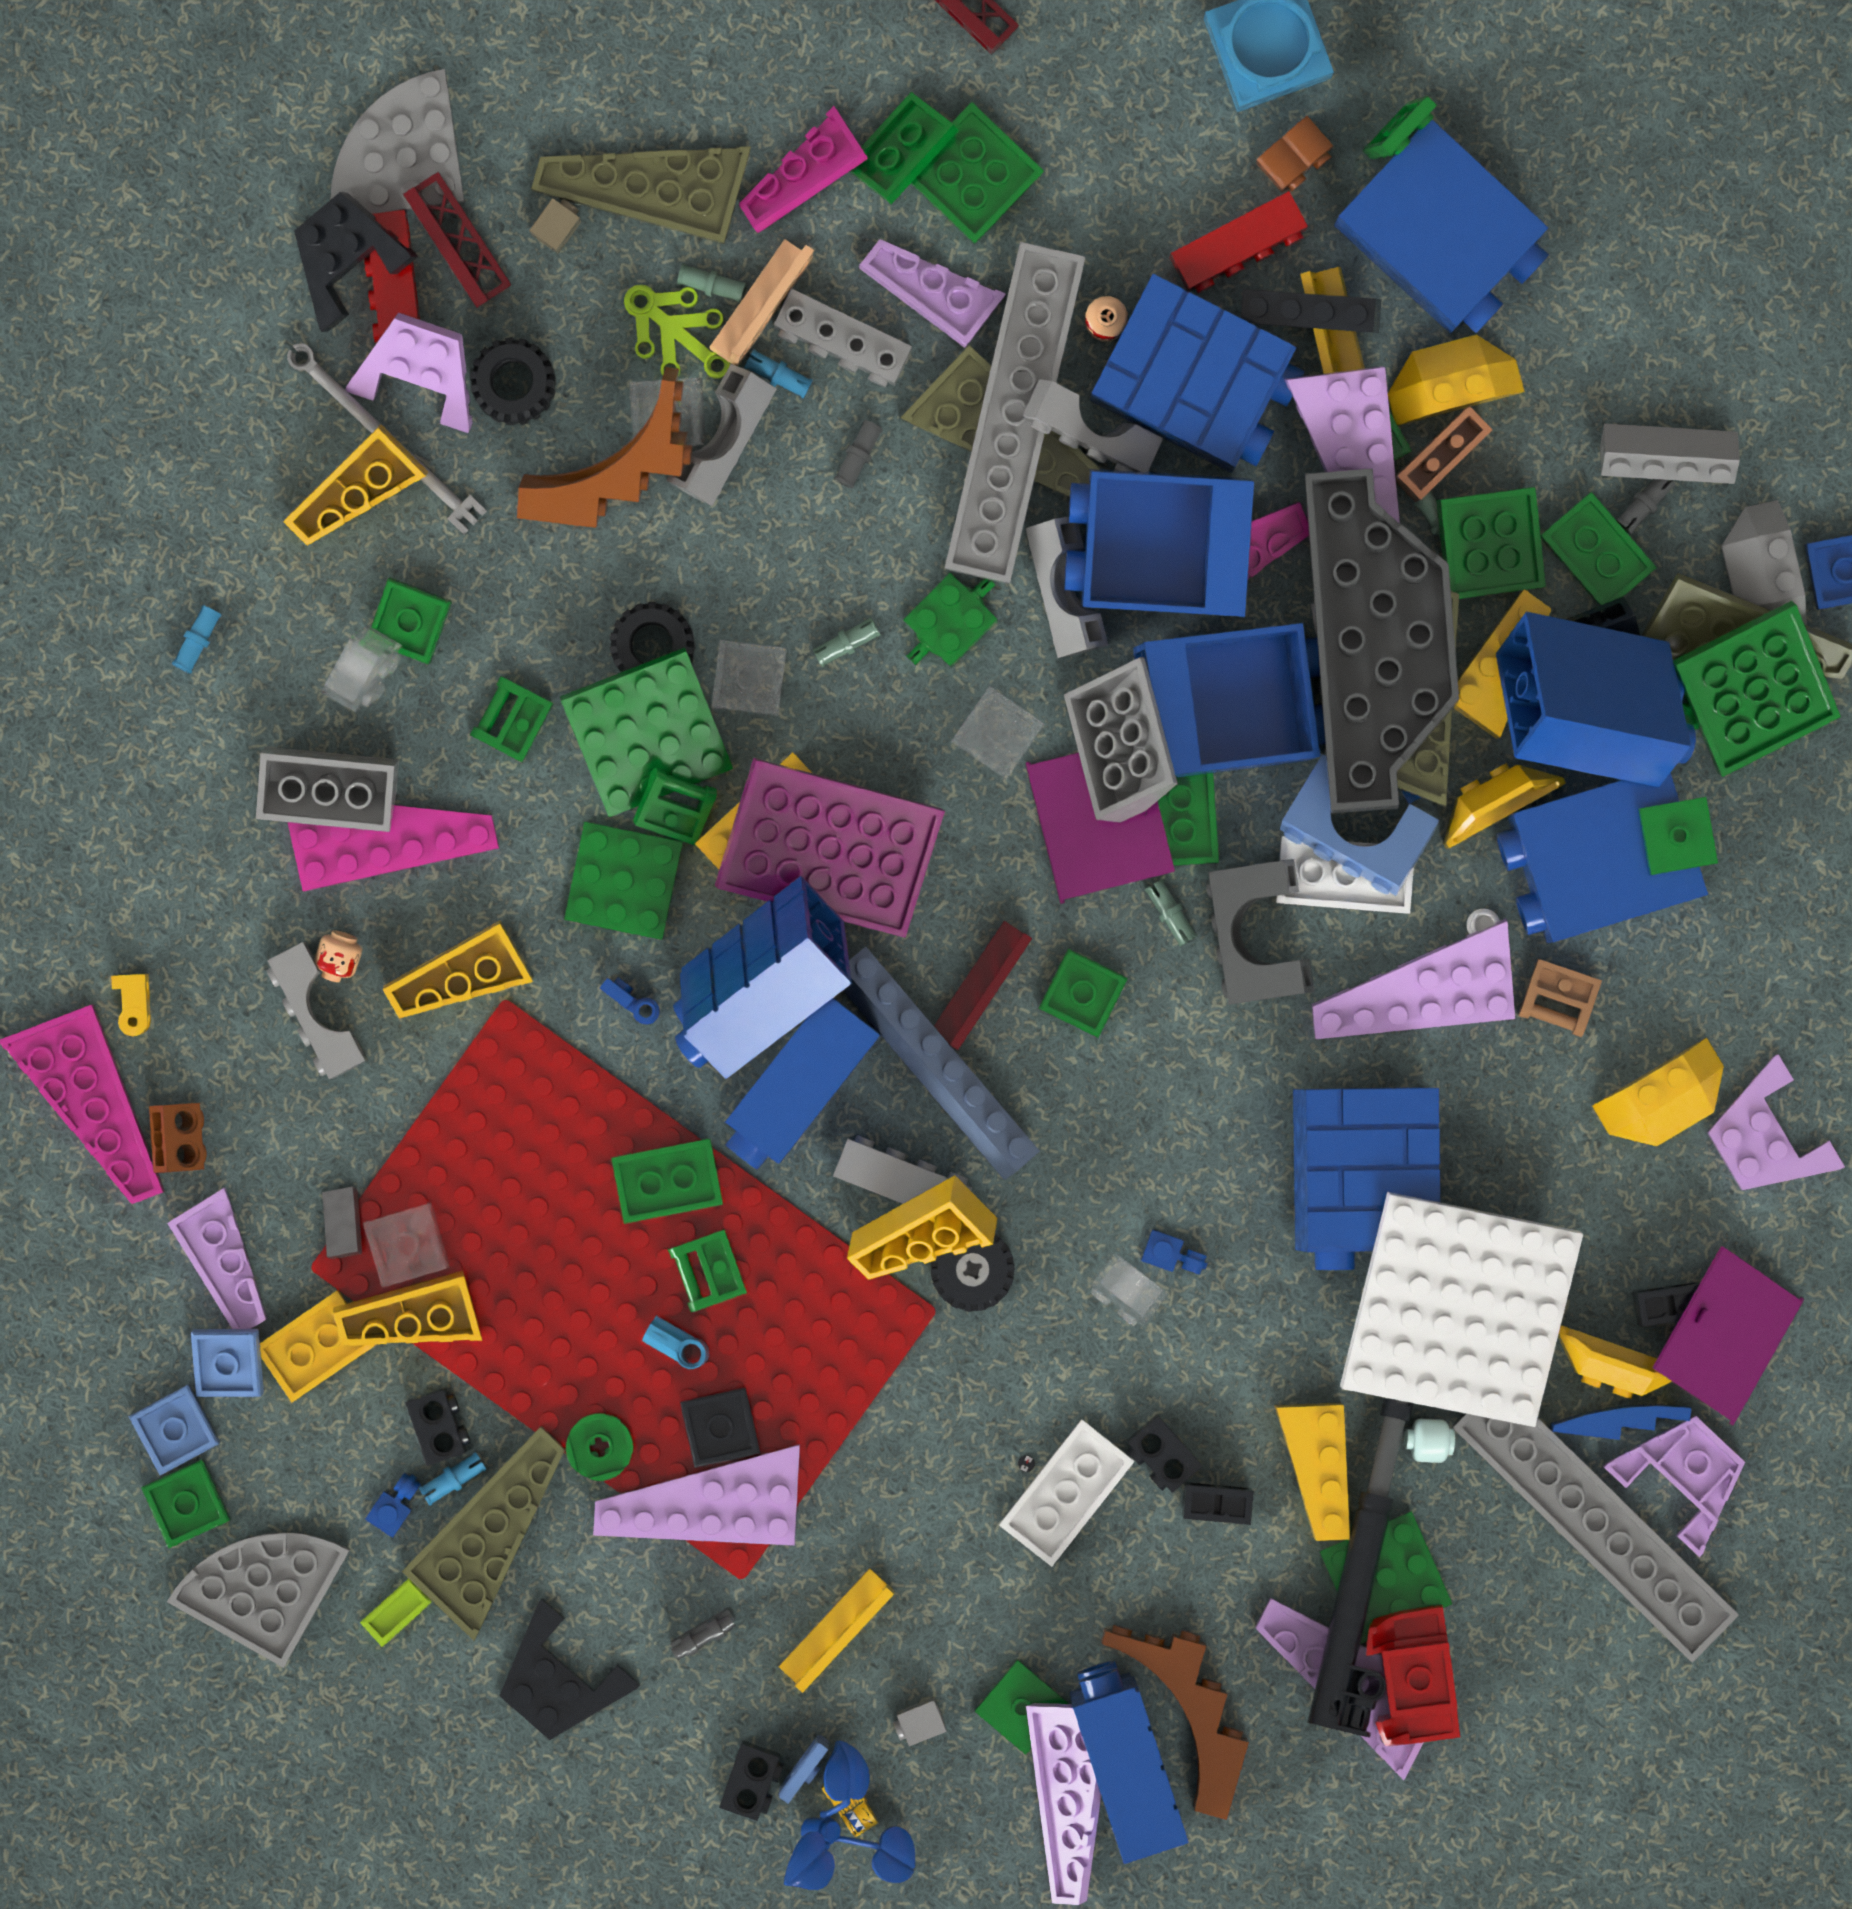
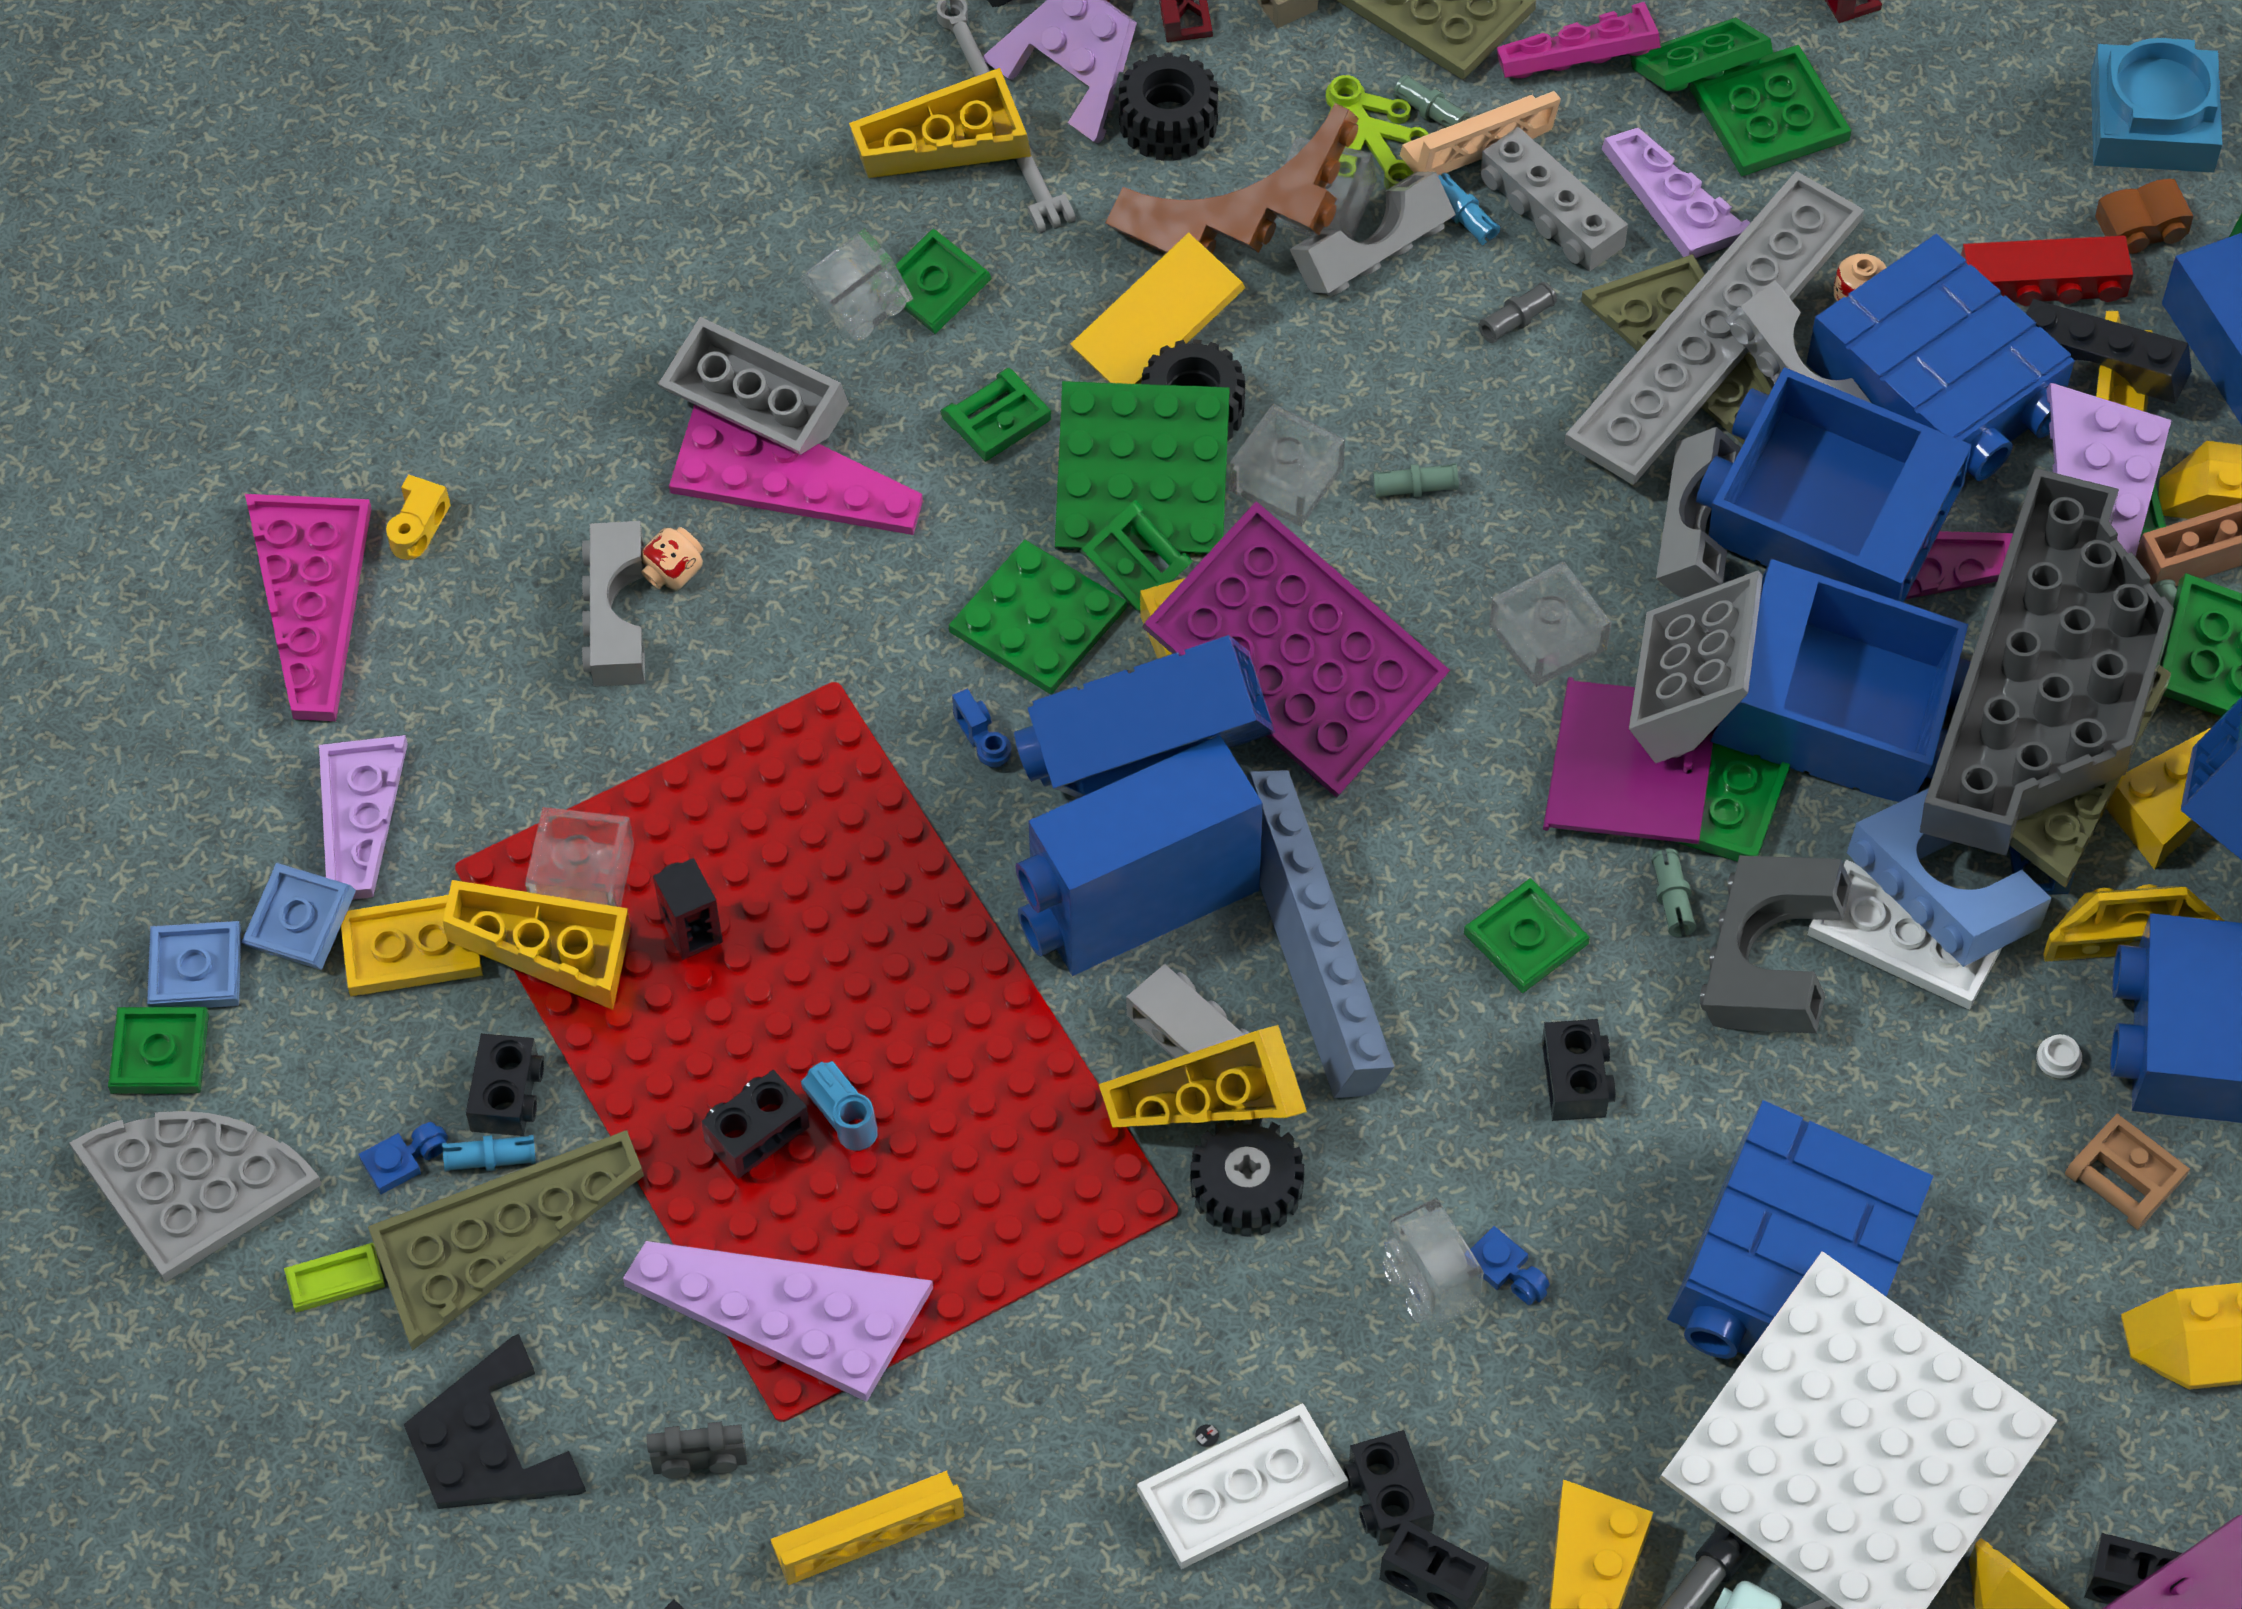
camera: 25 degrees right, 30 degrees down
(167, 1137) = (377, 657): dark orange brick -> none
(196, 639) = (692, 214): dark azure pin -> none
(342, 1222) = (517, 825): flat silver tile -> none
(459, 972) = (797, 624): yellow wedge -> none
(500, 1249) = (687, 908): none -> black brick
(590, 1463) = (691, 1206): green plate -> none
(594, 585) = (1160, 308): none -> yellow tile
(632, 1388) = (763, 1130): none -> black brick
(667, 1181) = (924, 927): green plate -> none
(718, 1266) = (936, 1043): green plate -> none
(720, 1427) = (844, 1221): black plate -> none
(950, 620) = (1546, 506): green plate -> none
(981, 984) = (1413, 878): dark red fence -> none
(1153, 1091) = (1572, 1070): none -> black brick
(1441, 988) = (1984, 1101): lavender wing -> none

